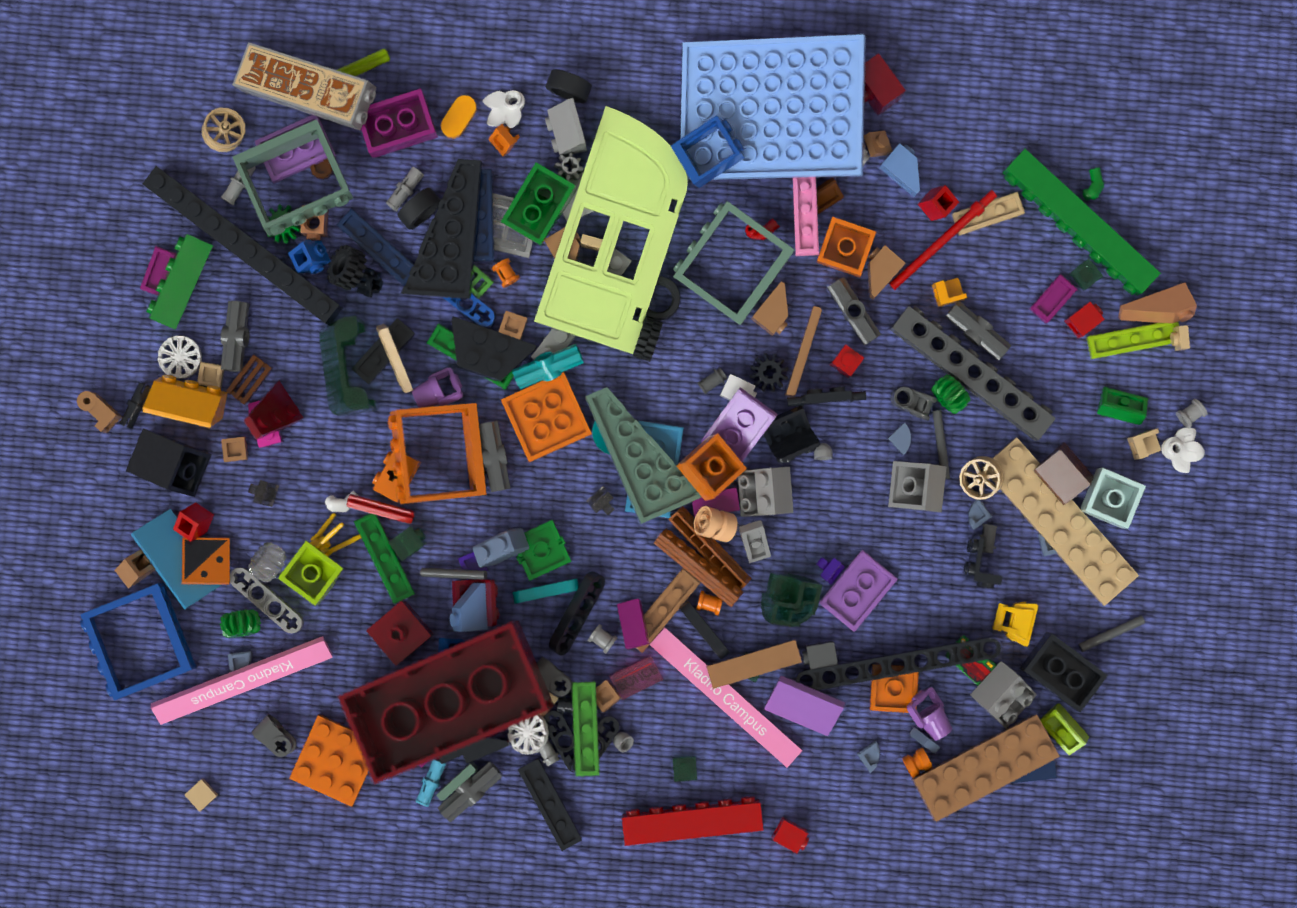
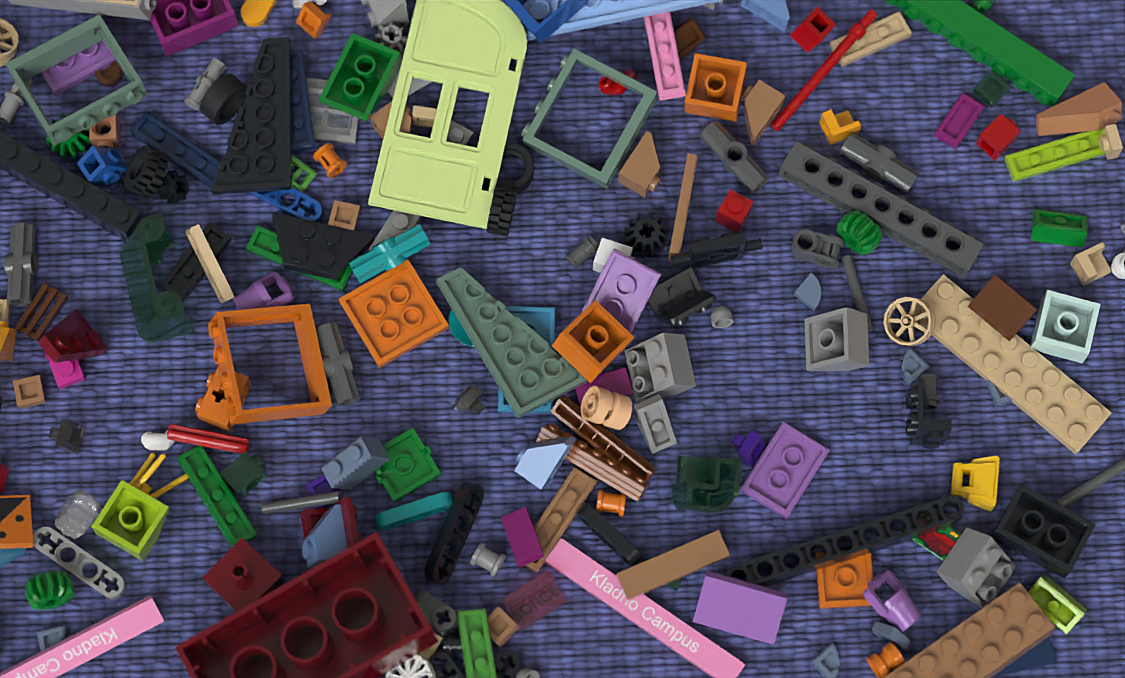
camera: 10 degrees left, 15 degrees down
(657, 561) = (543, 460): none -> slope
(820, 655) = (750, 545): dark grey brick -> none

